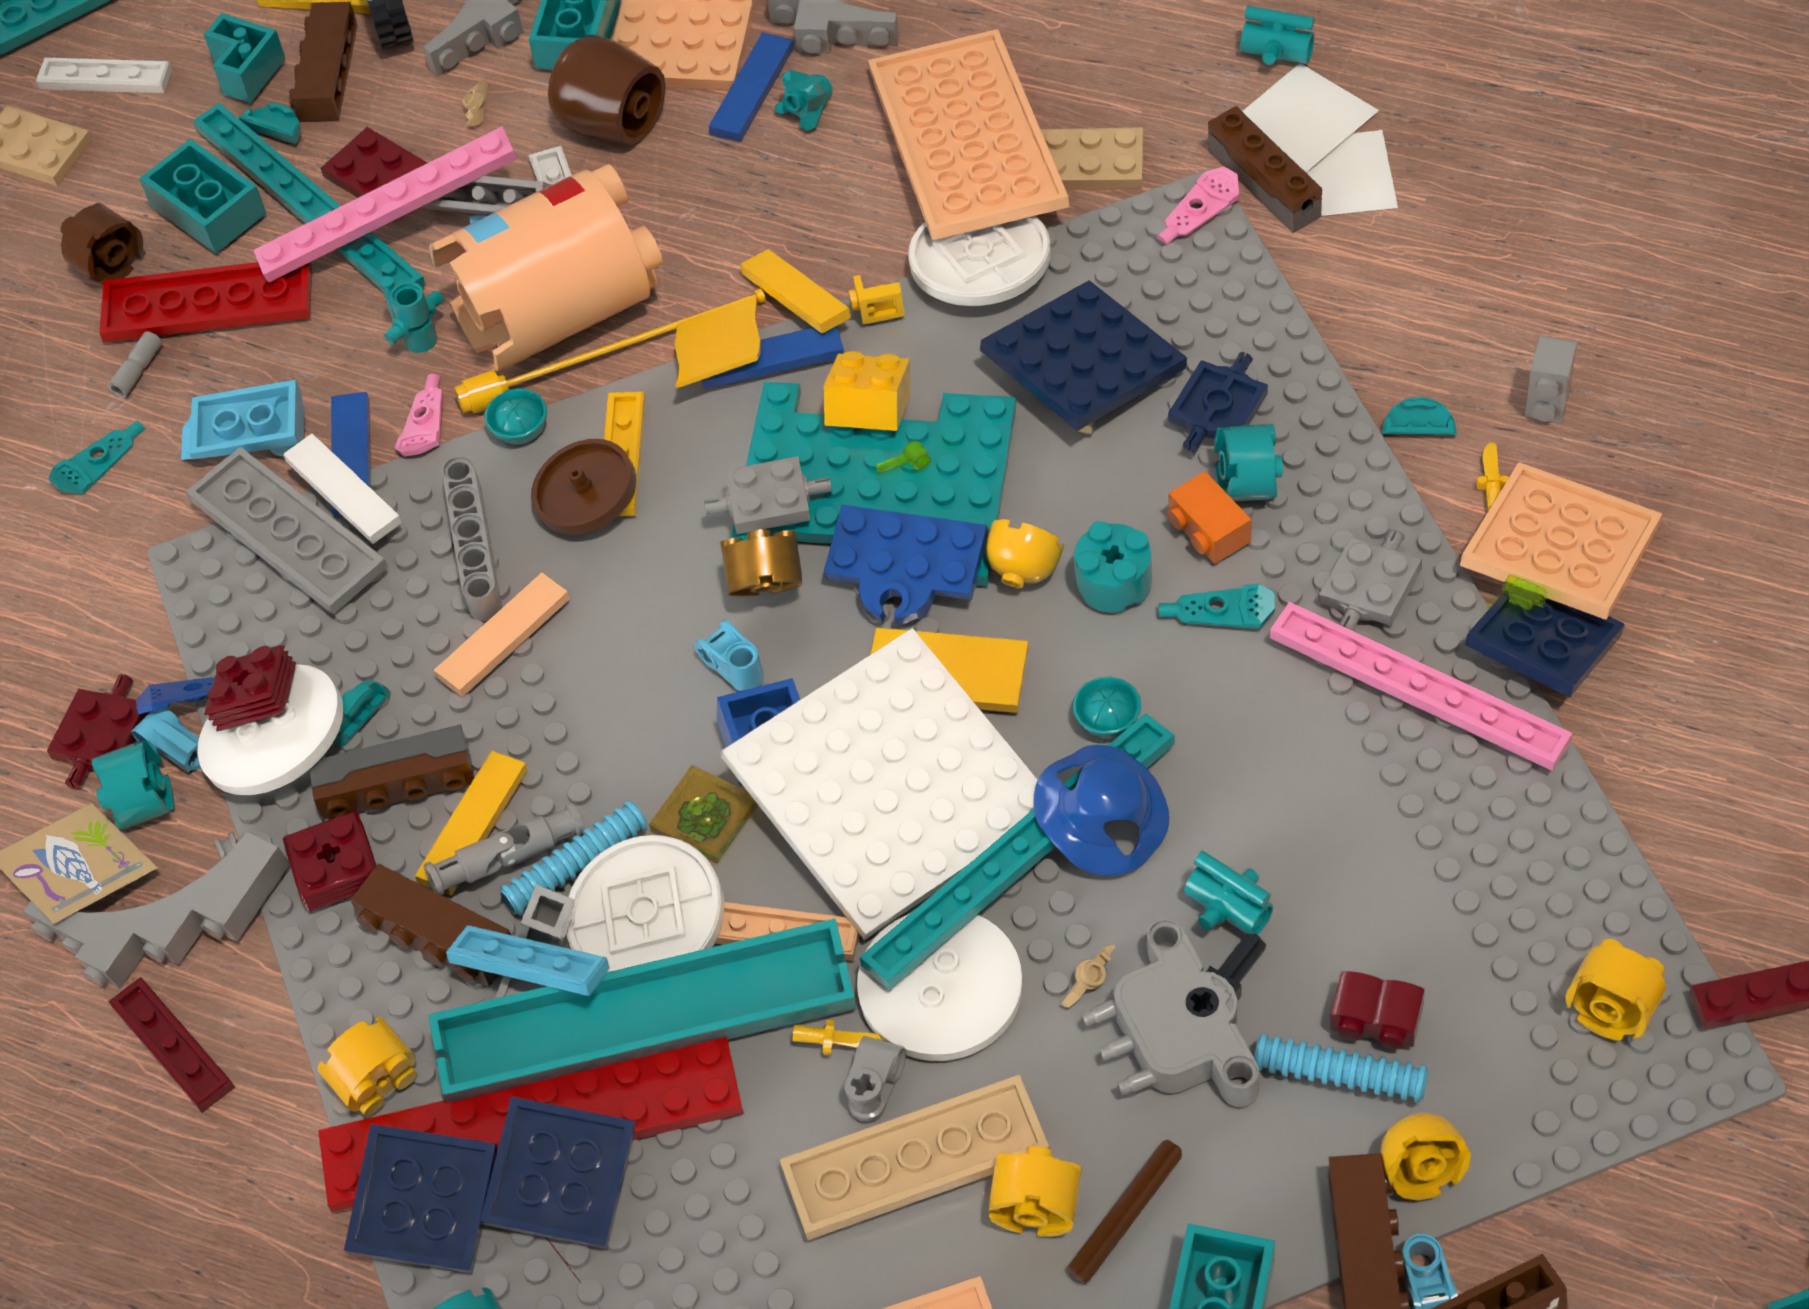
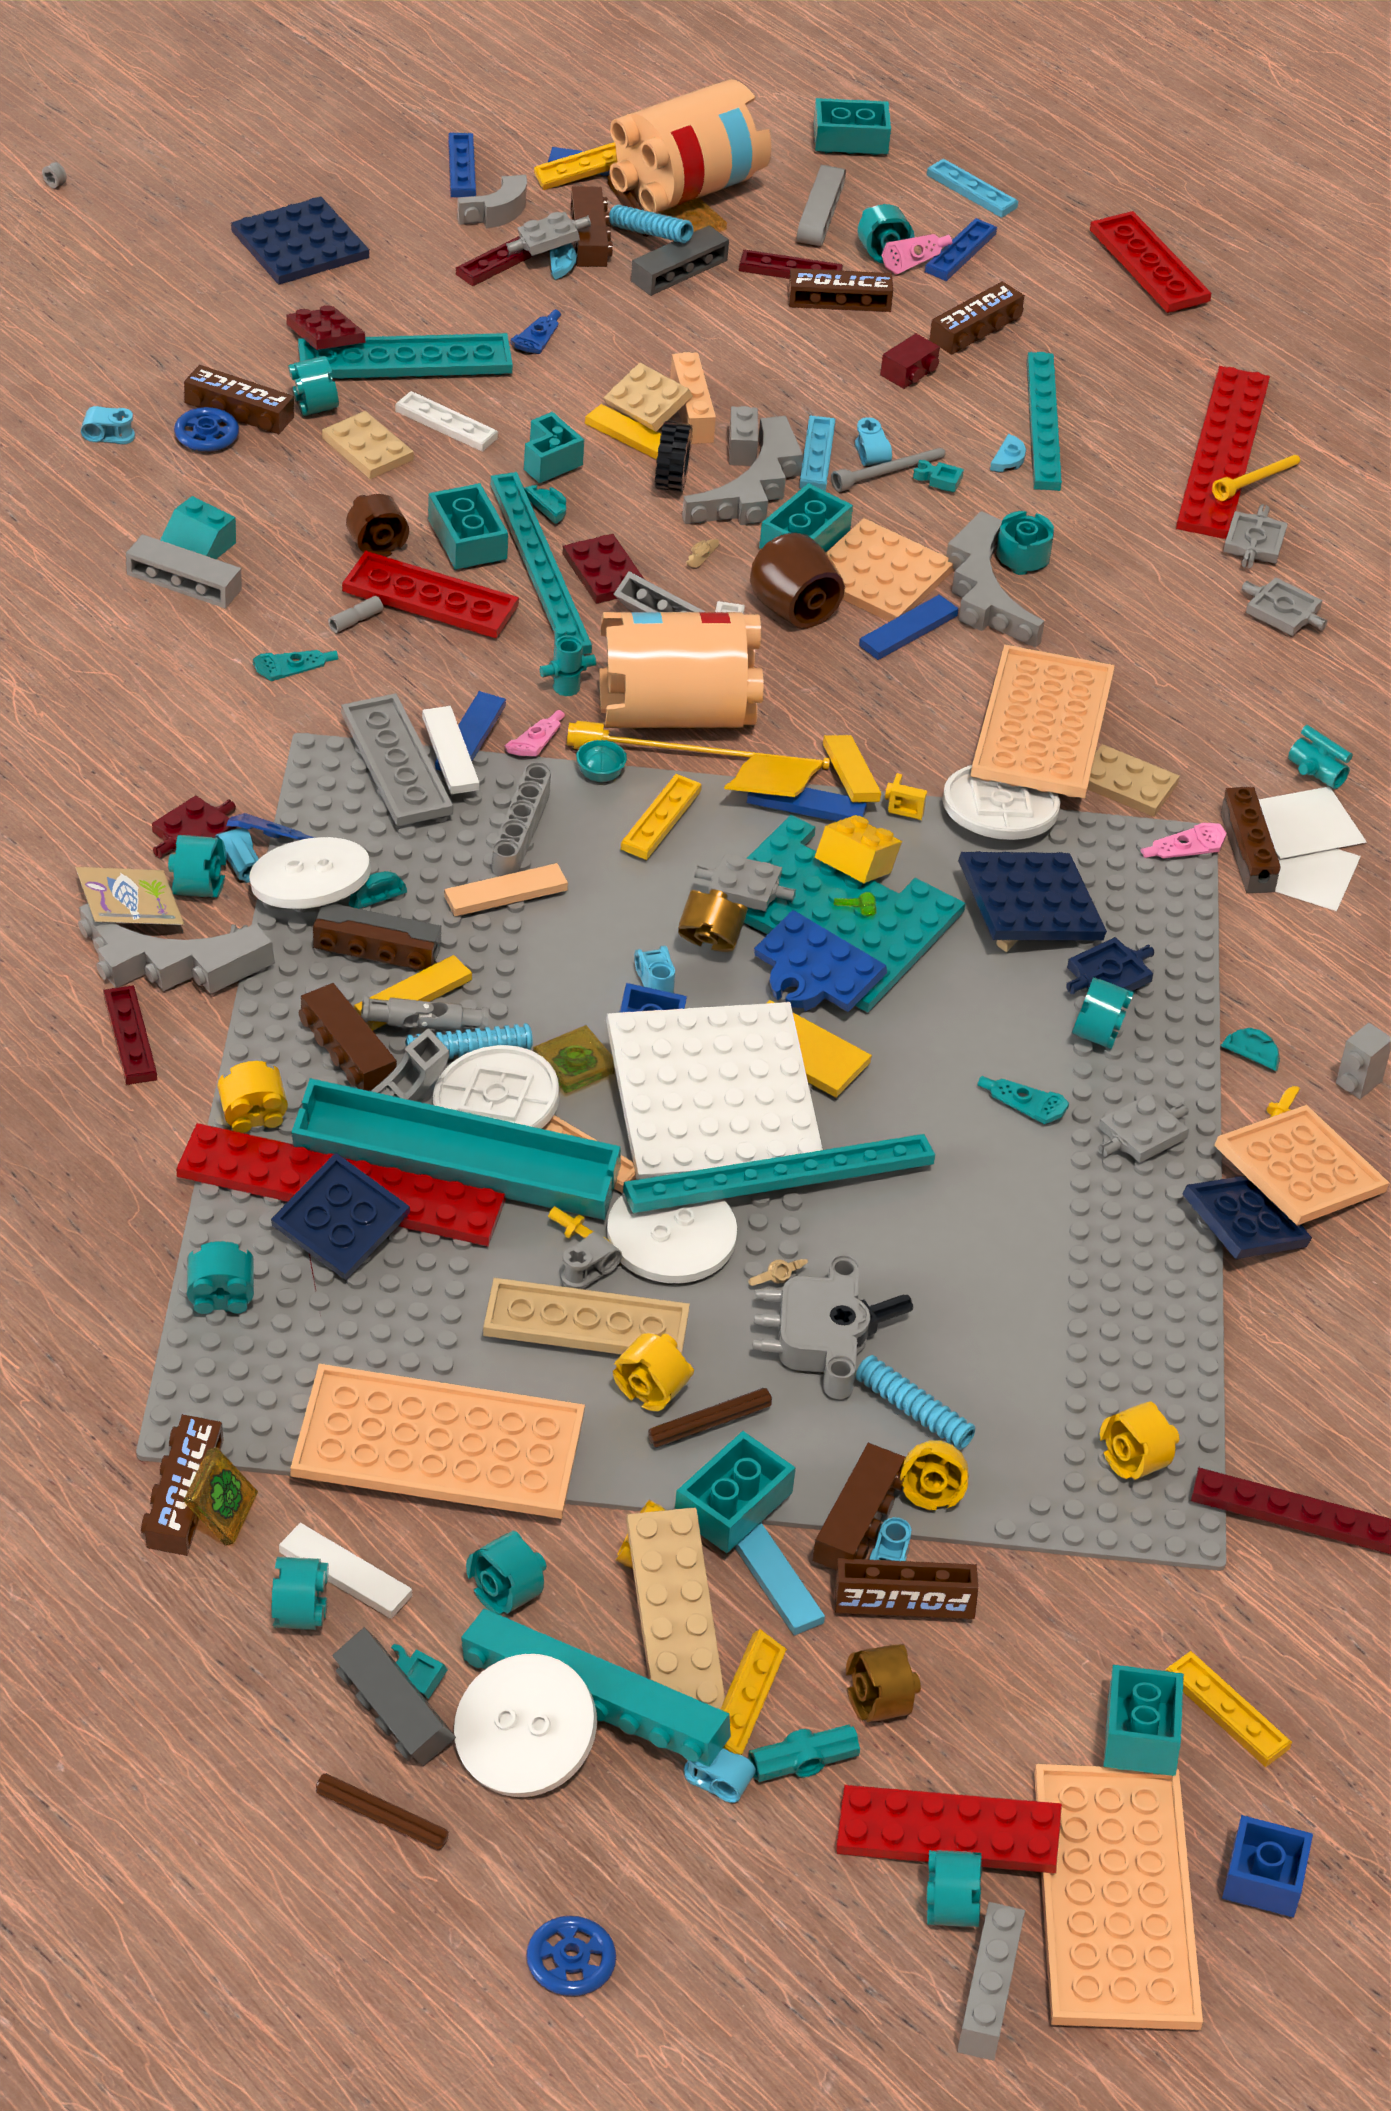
camera: 15 degrees right, 10 degrees down
(245, 418) = (412, 679): medium azure slope -> none
(250, 687) = (311, 838): dark red brick -> none
(315, 846) = (301, 968): dark red brick -> none
(324, 62) = (608, 478): reddish brown brick -> none
(385, 204) = (592, 583): bright pink plate -> none
(420, 1198) = (239, 1188): dark blue plate -> none
(528, 960) = (396, 1078): medium azure tile -> none
(583, 486) = (620, 823): reddish brown piece -> none
(804, 97) = (941, 648): teal rock -> none
(1021, 554) = (902, 997): yellow cylinder -> none
(1106, 707) = (899, 1118): teal hat -> none
(1108, 790) = (855, 1155): blue piece -> none
(1113, 566) = (962, 1035): teal brick -> none
(1209, 517) = (1052, 1037): orange brick -> none
(1228, 895) = (906, 1266): teal pin -> none
(1377, 1009) = (964, 1380): dark red brick -> none
(1421, 686) = (1134, 1206): bright pink plate -> none
(1524, 593) = (1246, 1179): clear neon green plate -> none

